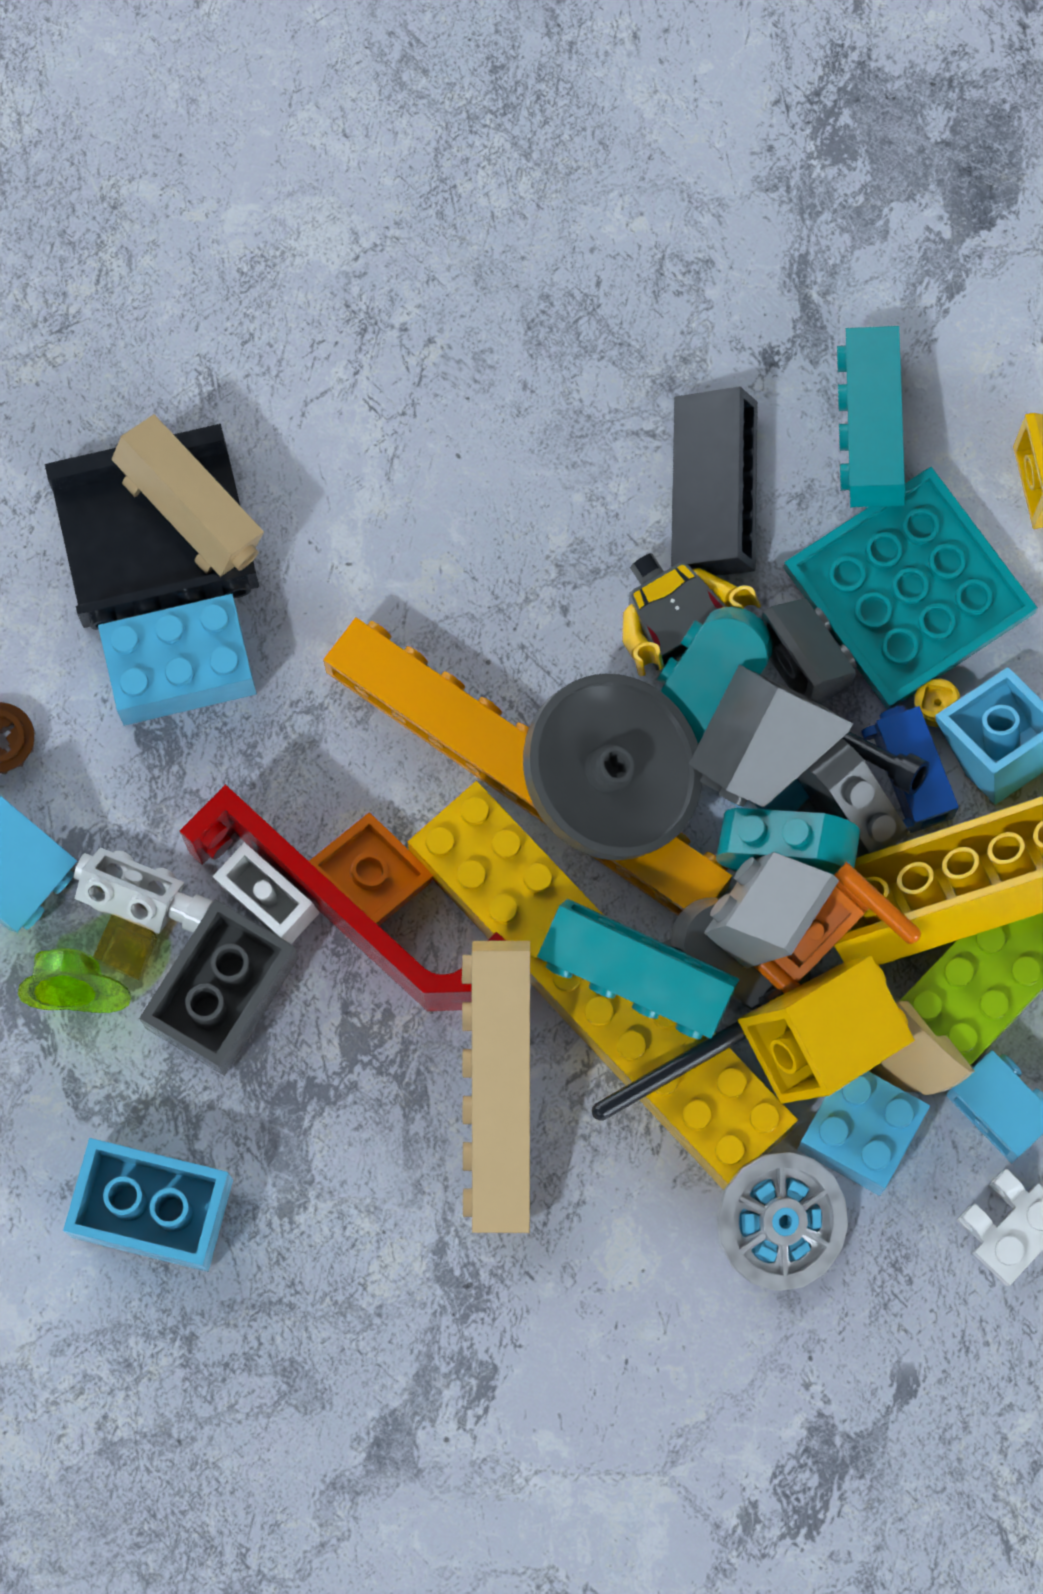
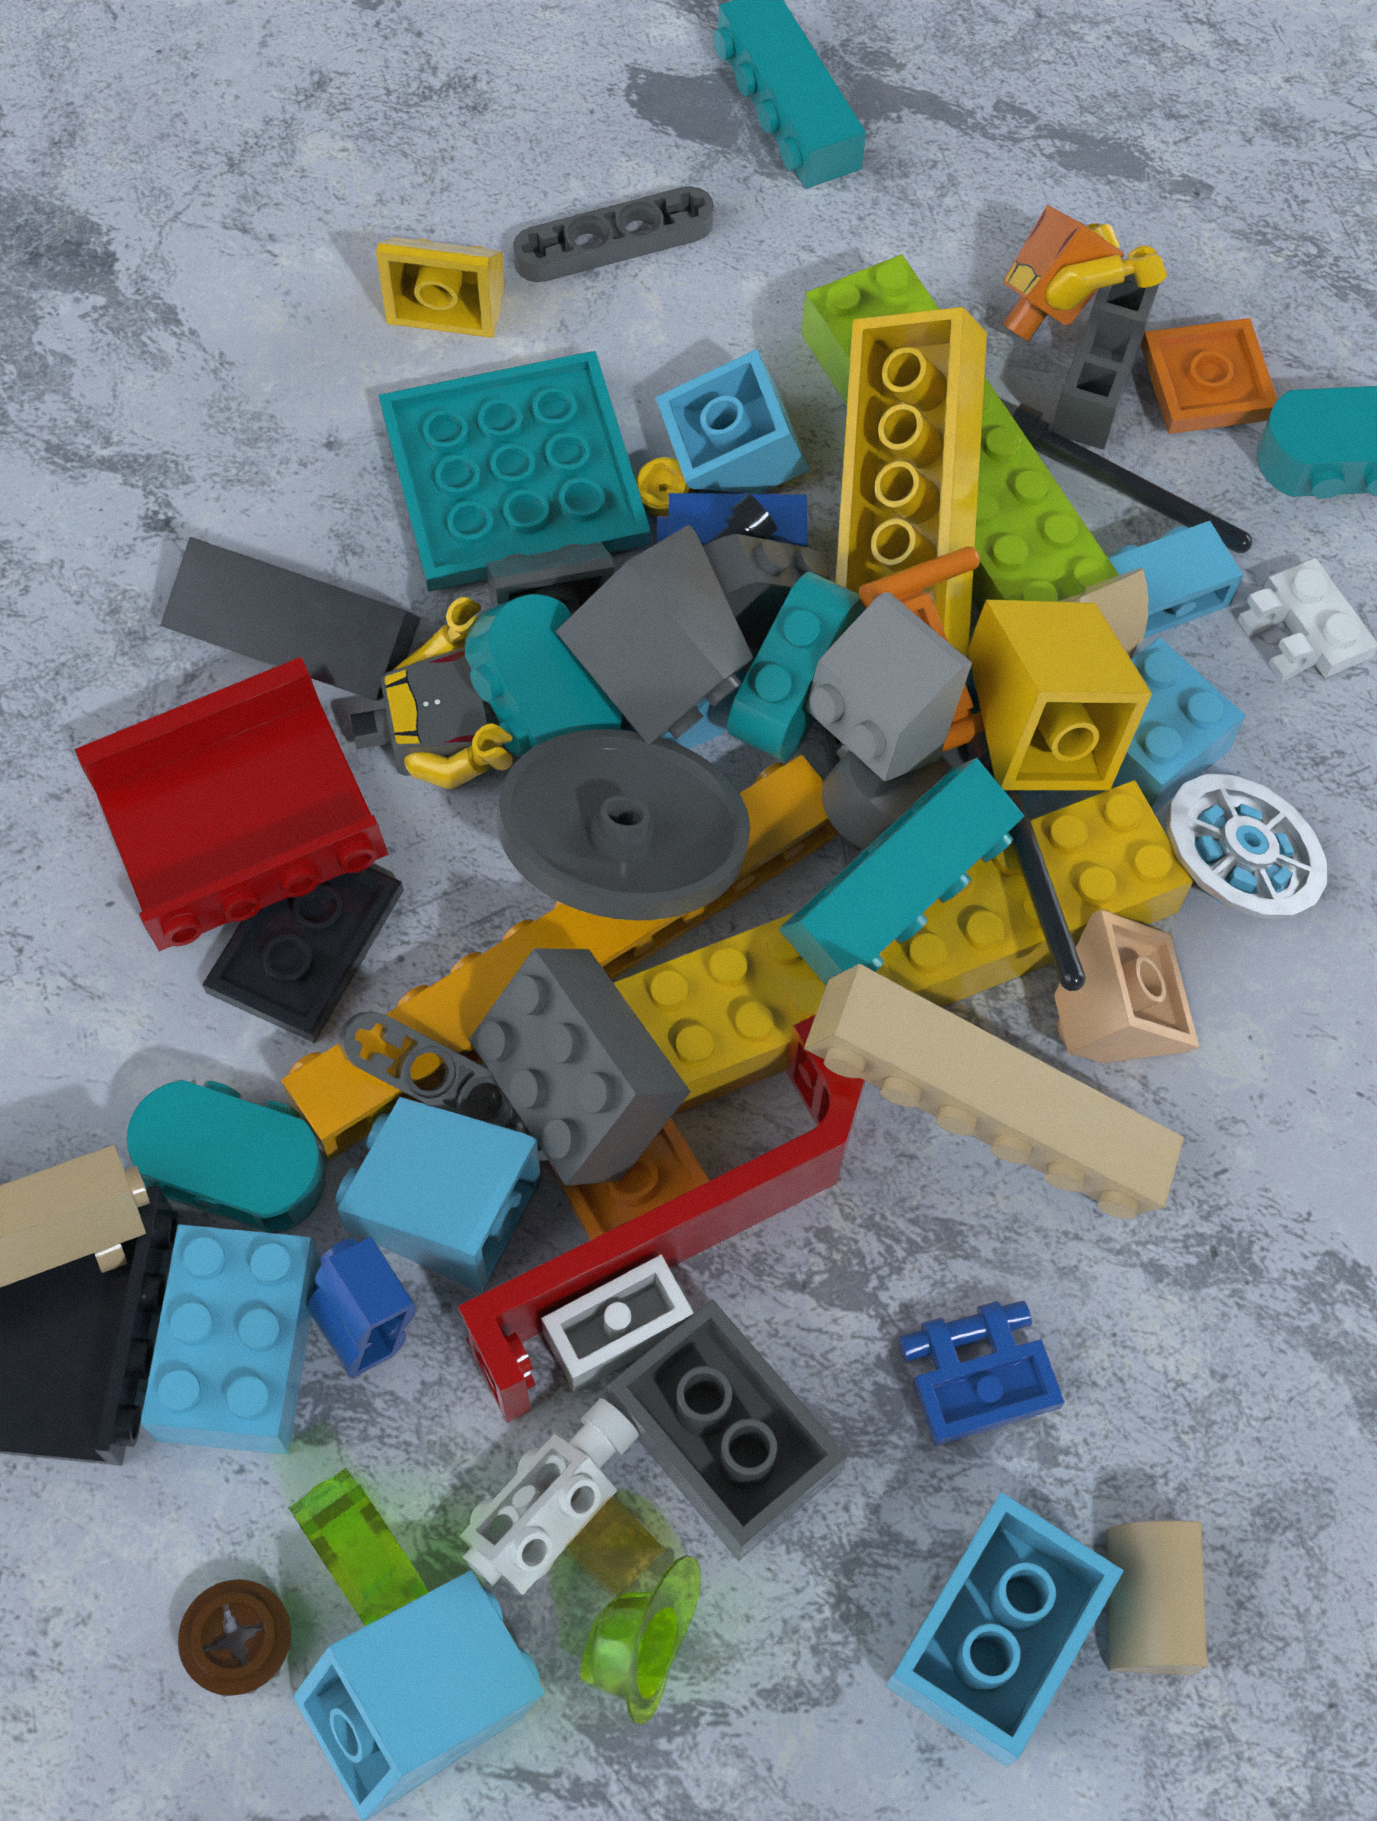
camera: 75 degrees left, 10 degrees down
(68, 786) = (357, 1547): none -> clear neon green brick
(206, 1304) = (1158, 1600): none -> tan brick
(219, 727) = (360, 1305): none -> blue brick
(299, 605) = (227, 1154): none -> teal brick
(309, 1153) = (984, 1390): none -> blue plate
(318, 750) = (441, 1190): none -> medium azure slope
(397, 731) = (459, 1077): none -> dark grey beam
(421, 800) = (578, 1066): none -> dark grey brick
(477, 592) = (304, 951): none -> black tile
(552, 506) = (231, 804): none -> red panel
(635, 1166) = (1130, 996): none -> light nougat slope
(874, 417) = (293, 424): teal brick -> none

